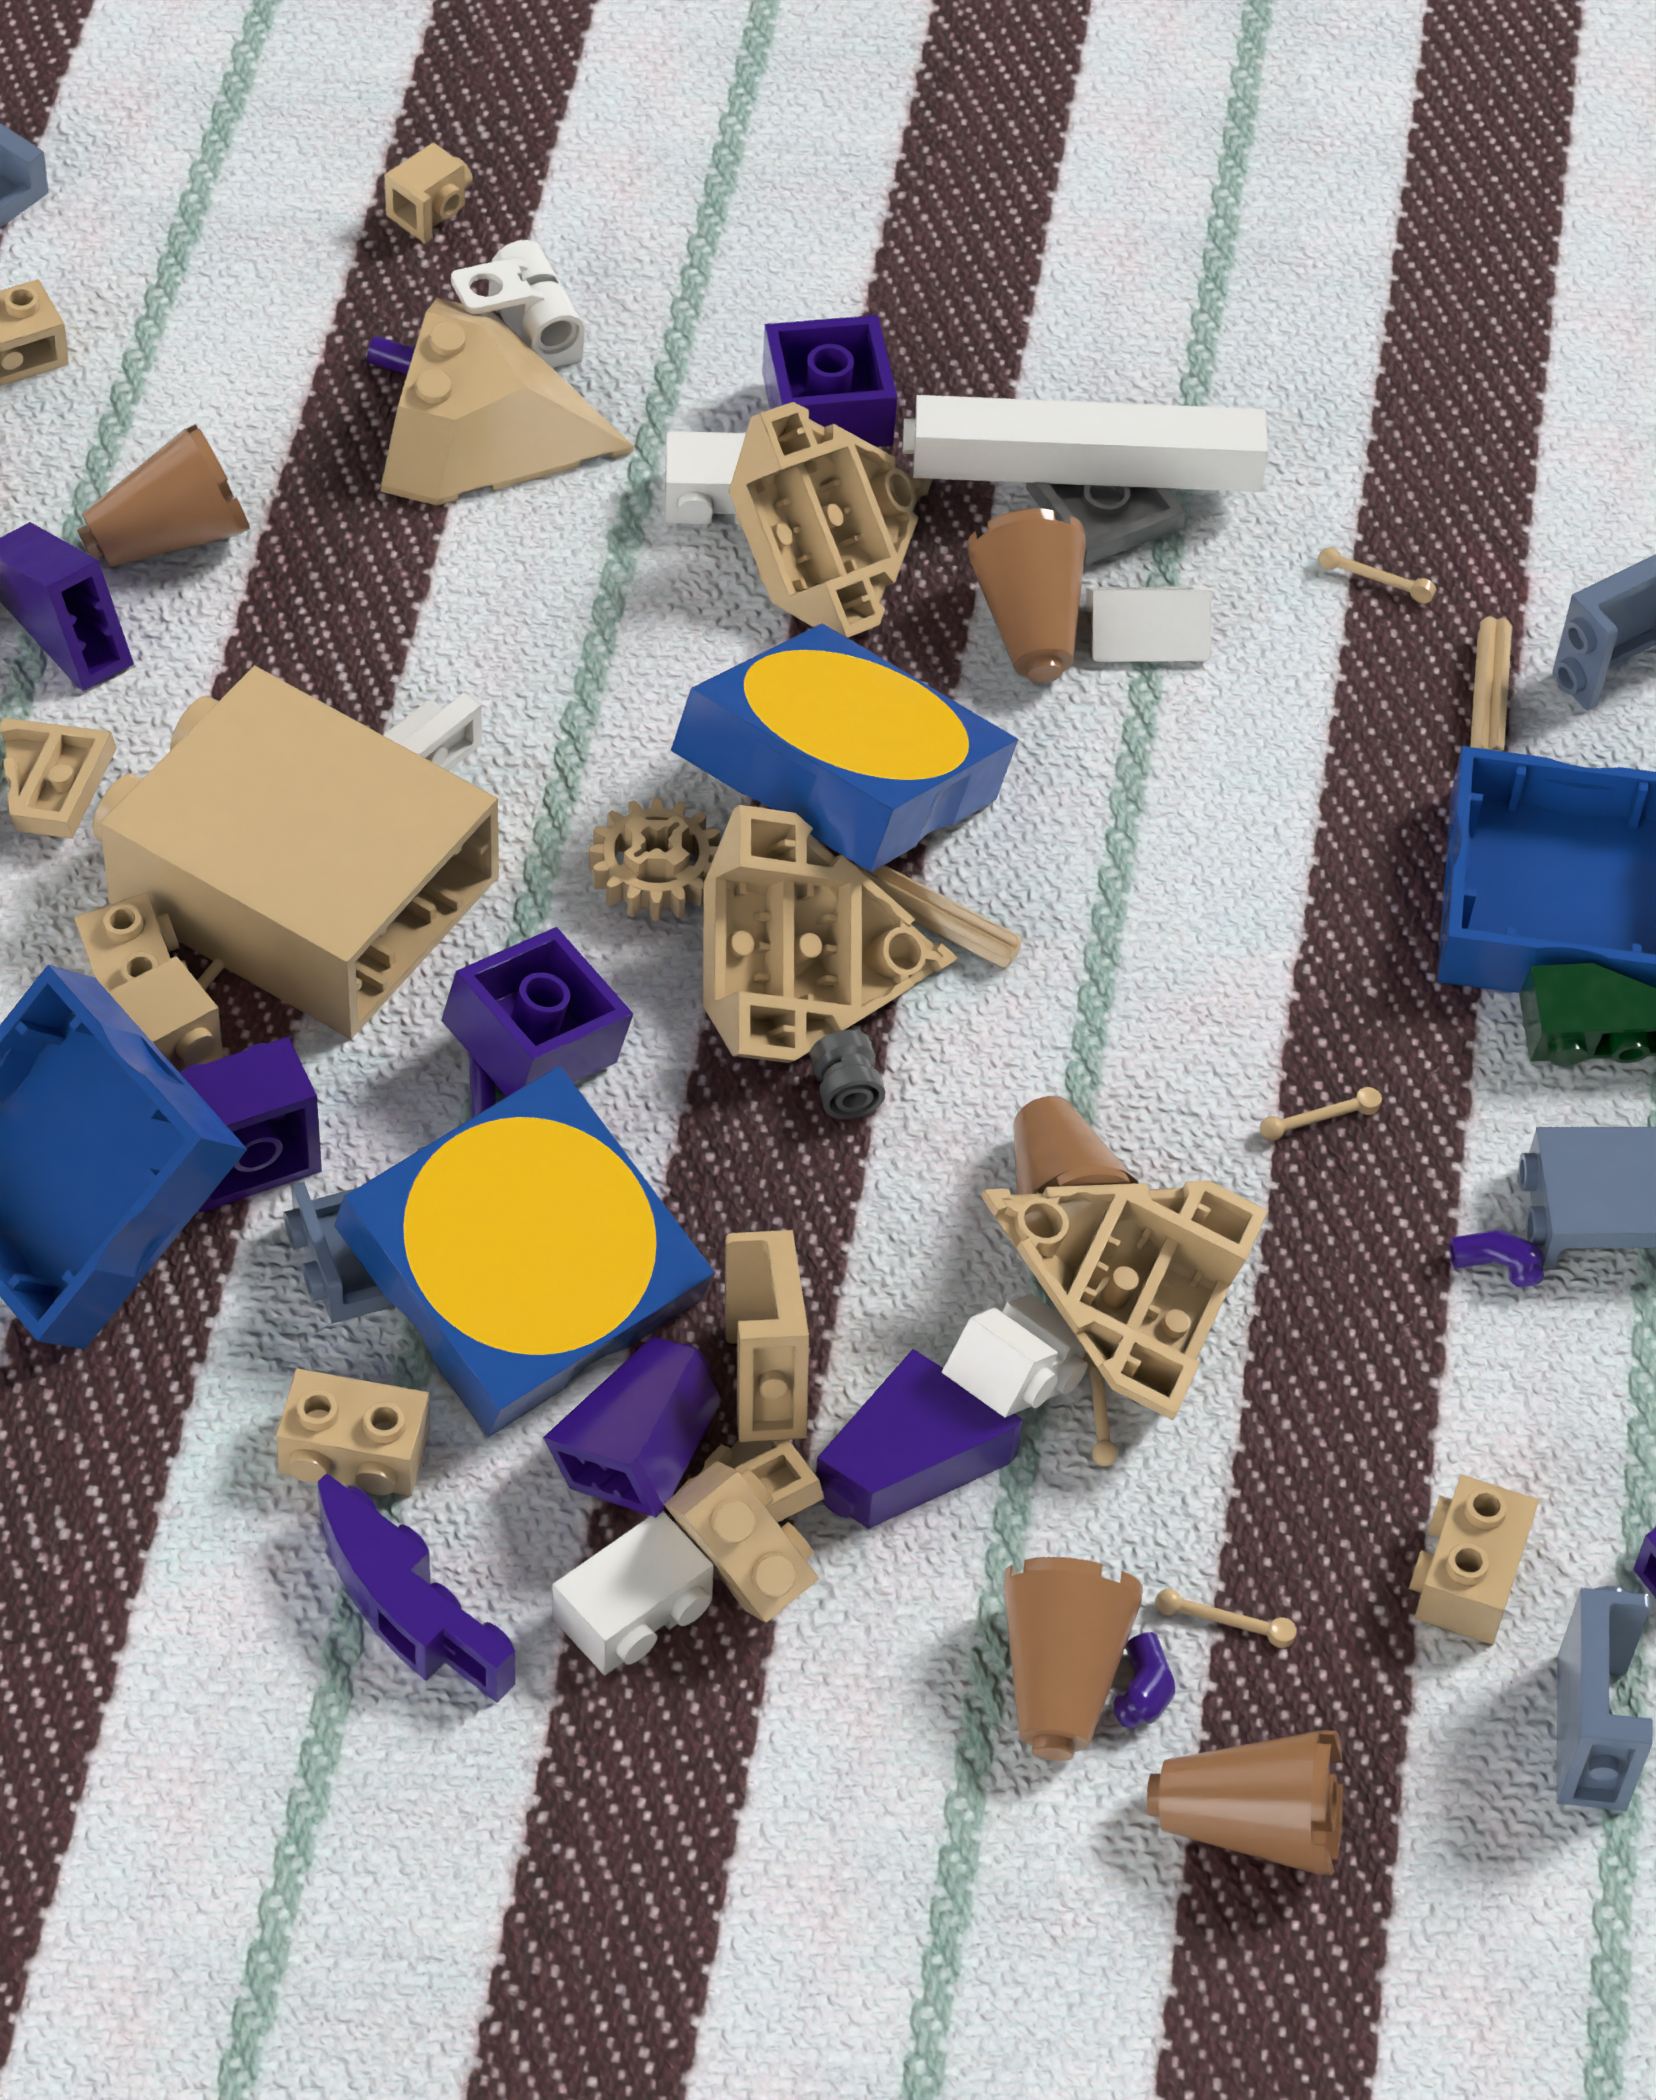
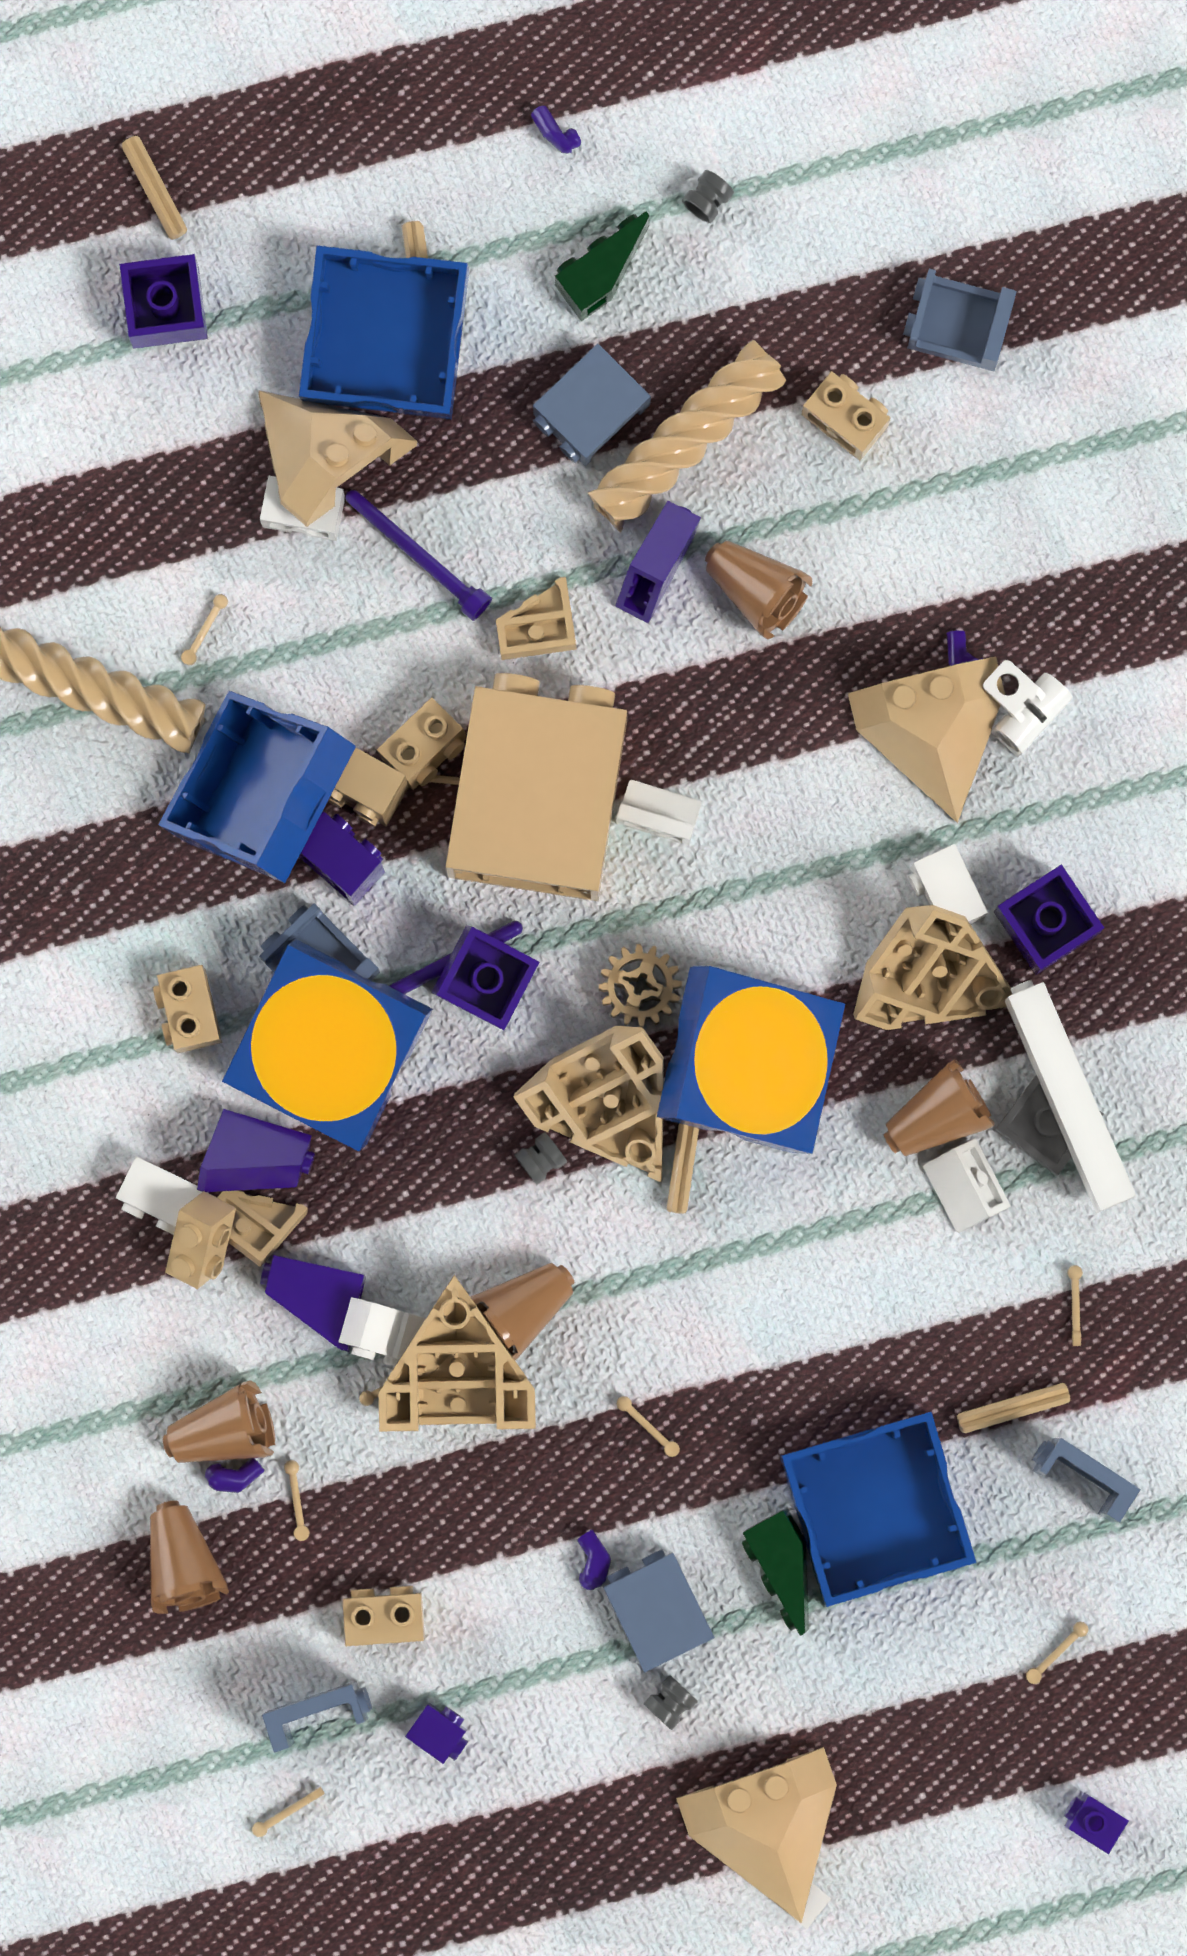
camera: 70 degrees right, 30 degrees up
(392, 1588) = (114, 1065): dark purple slope -> none
(426, 190) = (1099, 600): tan brick -> none
(771, 1334) = (300, 1218): tan panel -> none

